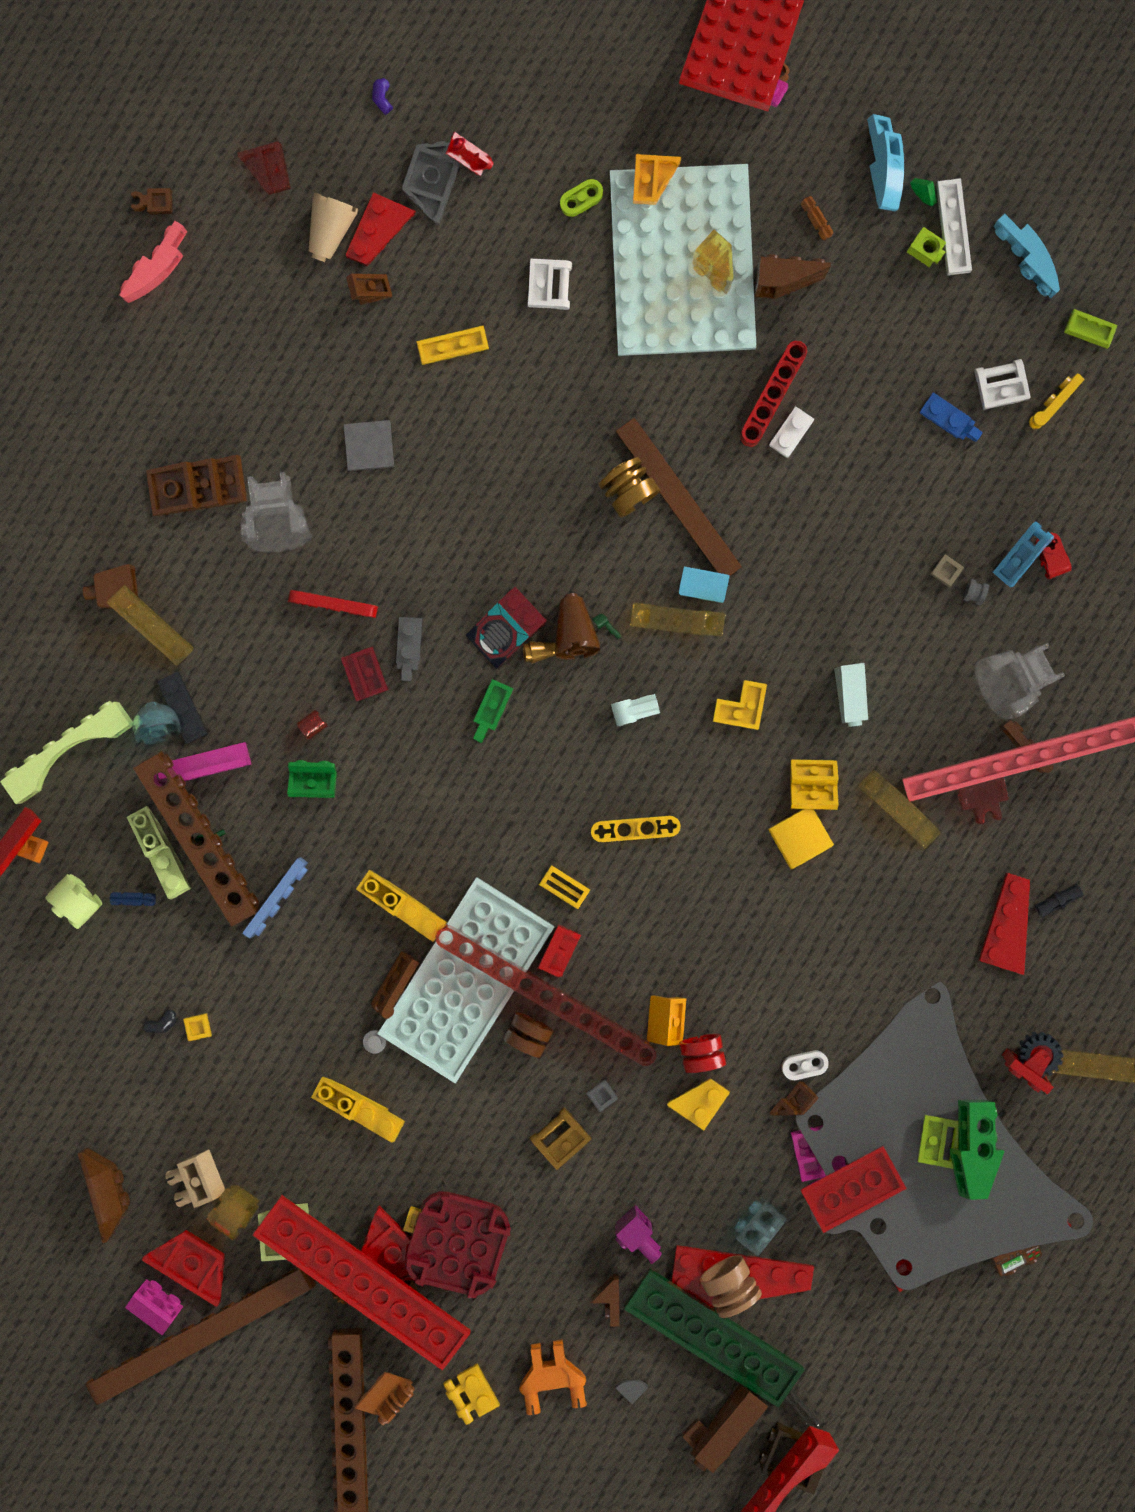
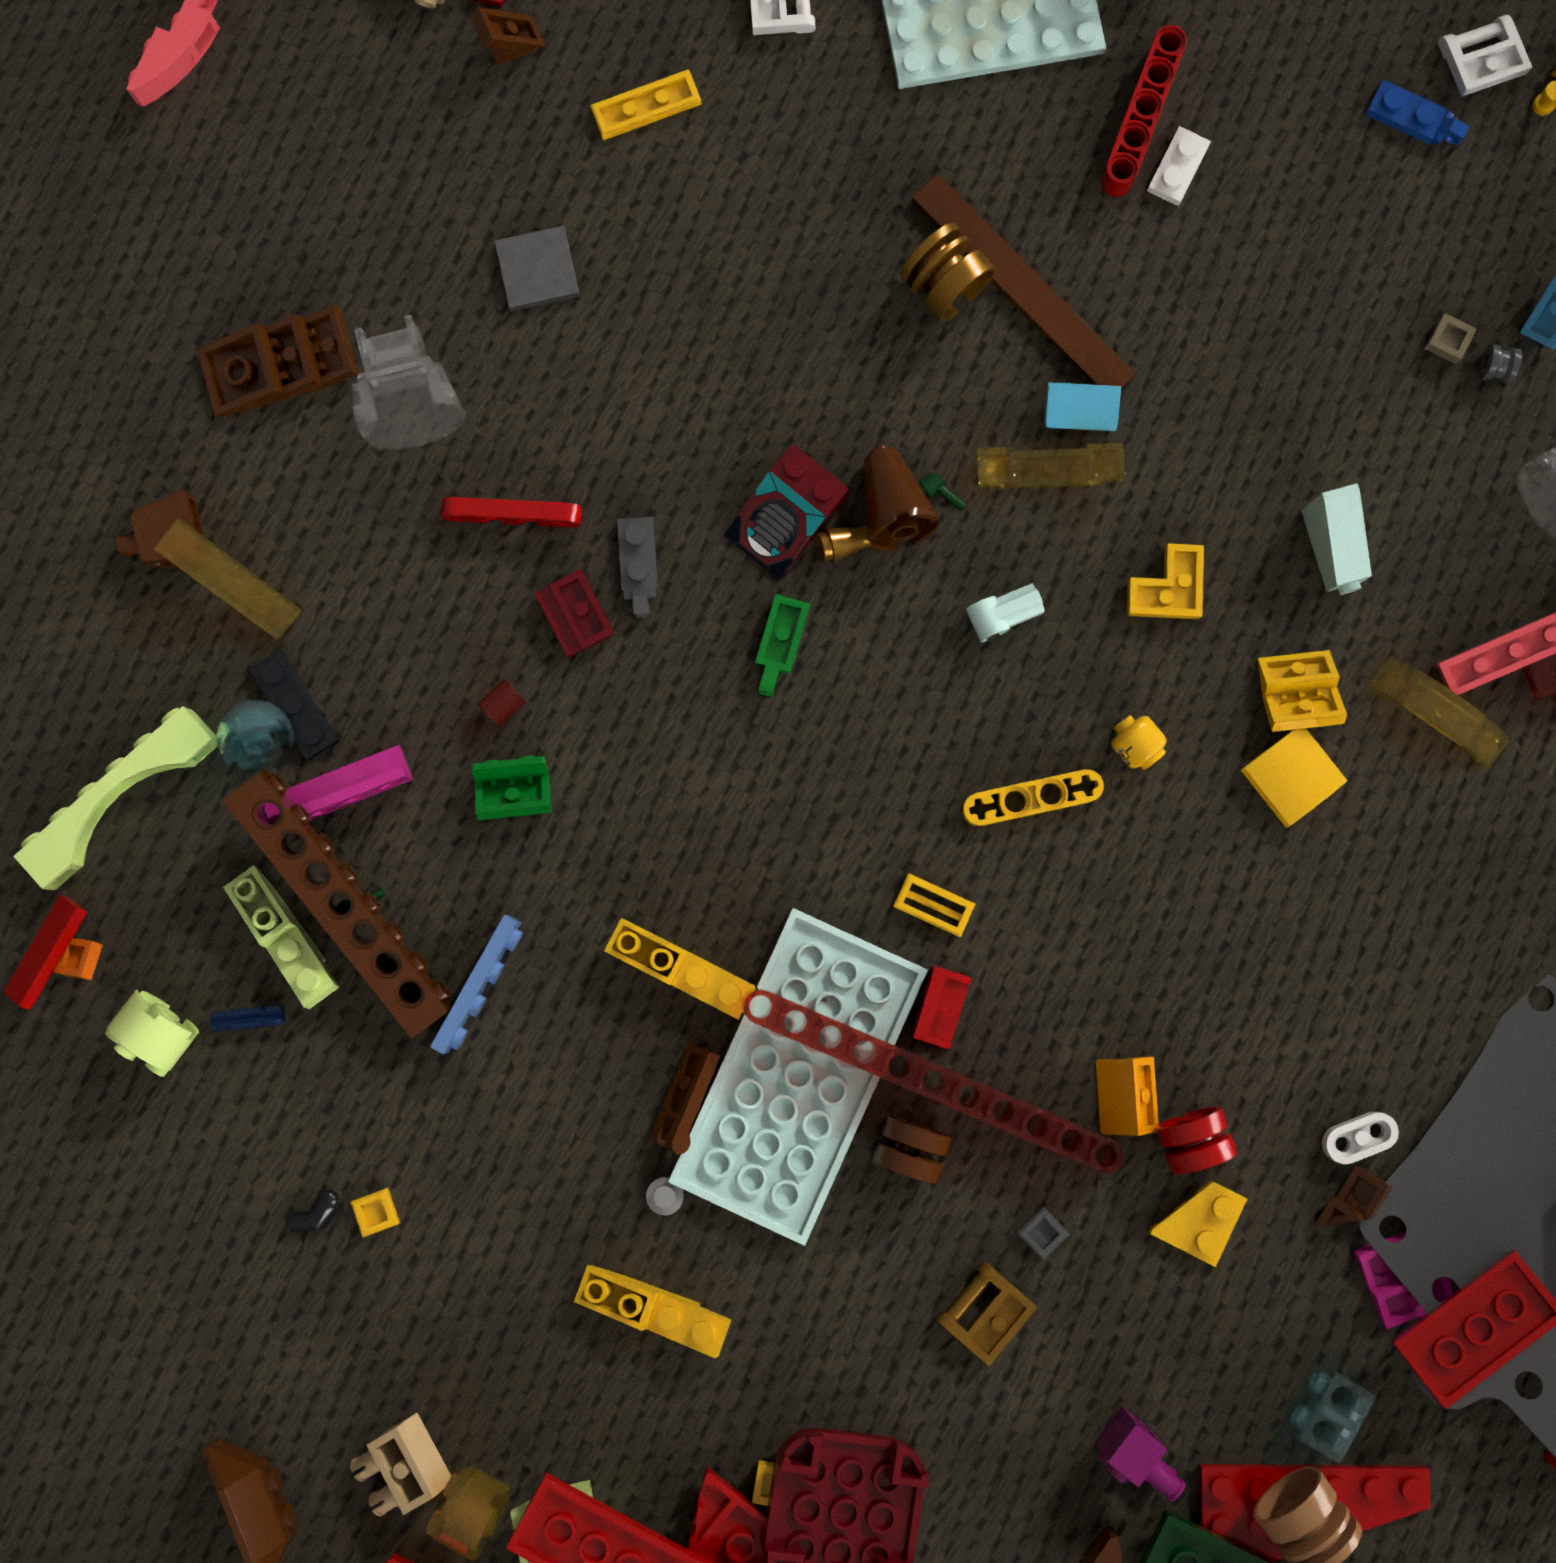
camera: 15 degrees left, 5 degrees down
(706, 803) = (1139, 742): none -> yellow head

